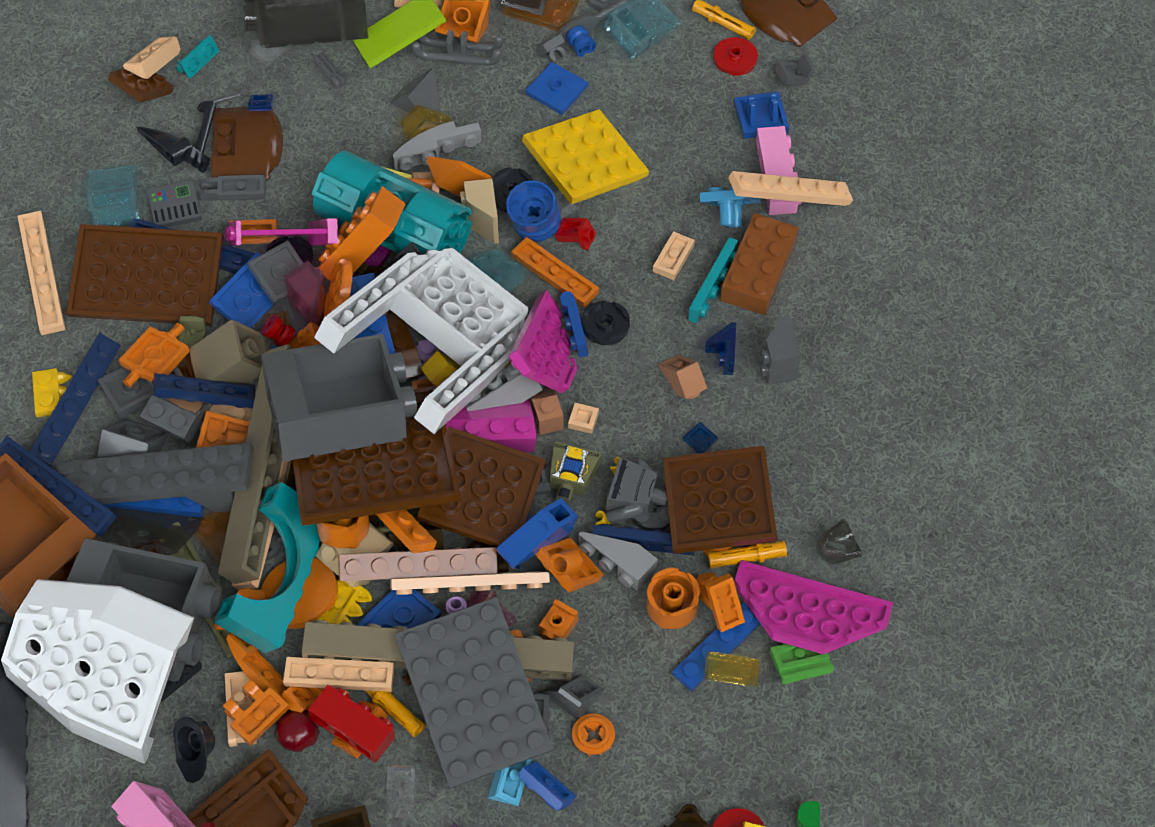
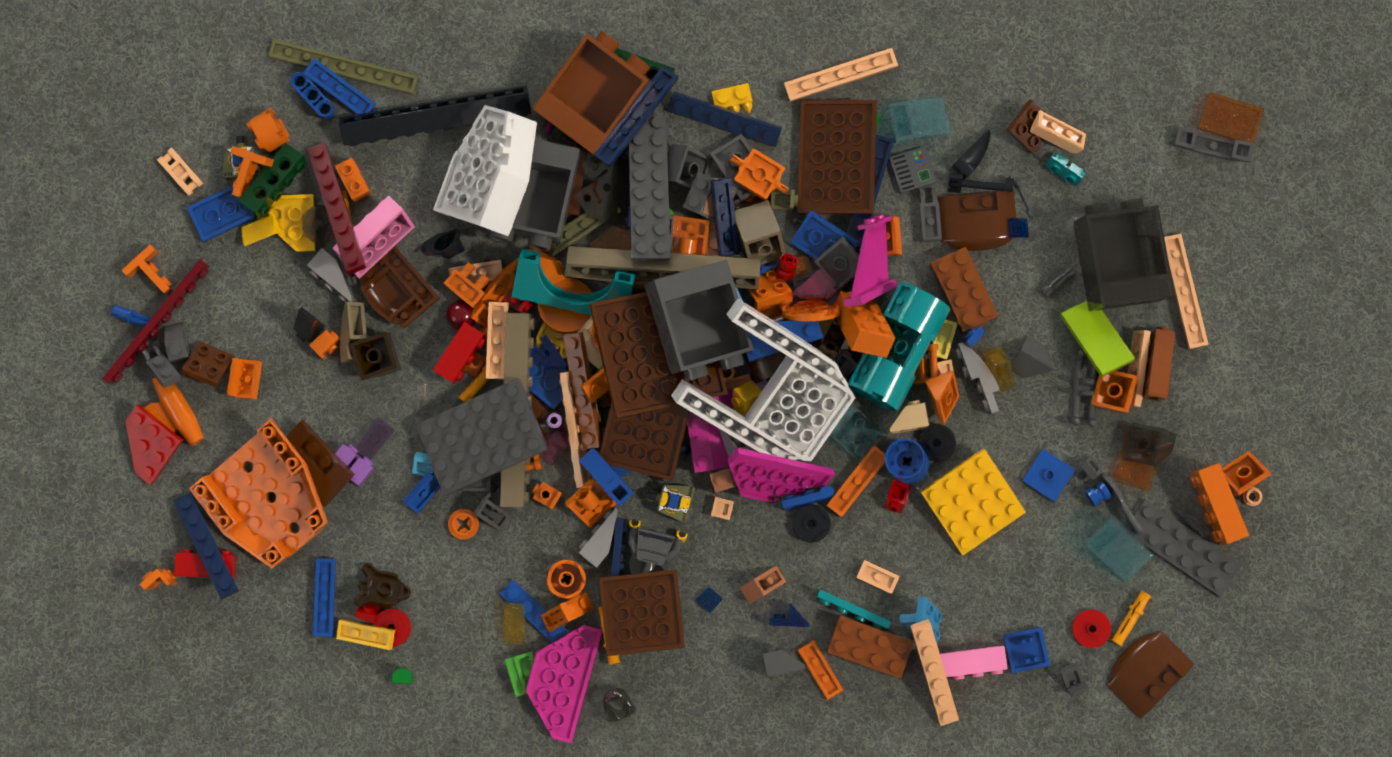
camera: 90 degrees right, 25 degrees up
(291, 648) = (518, 305): none -> red bracket
(309, 155) = (963, 290): none -> dark orange brick
(368, 600) = (554, 359): none -> clear blue slope
(387, 141) = (973, 336): none -> blue plate
(801, 315) = (820, 670): none -> orange tile

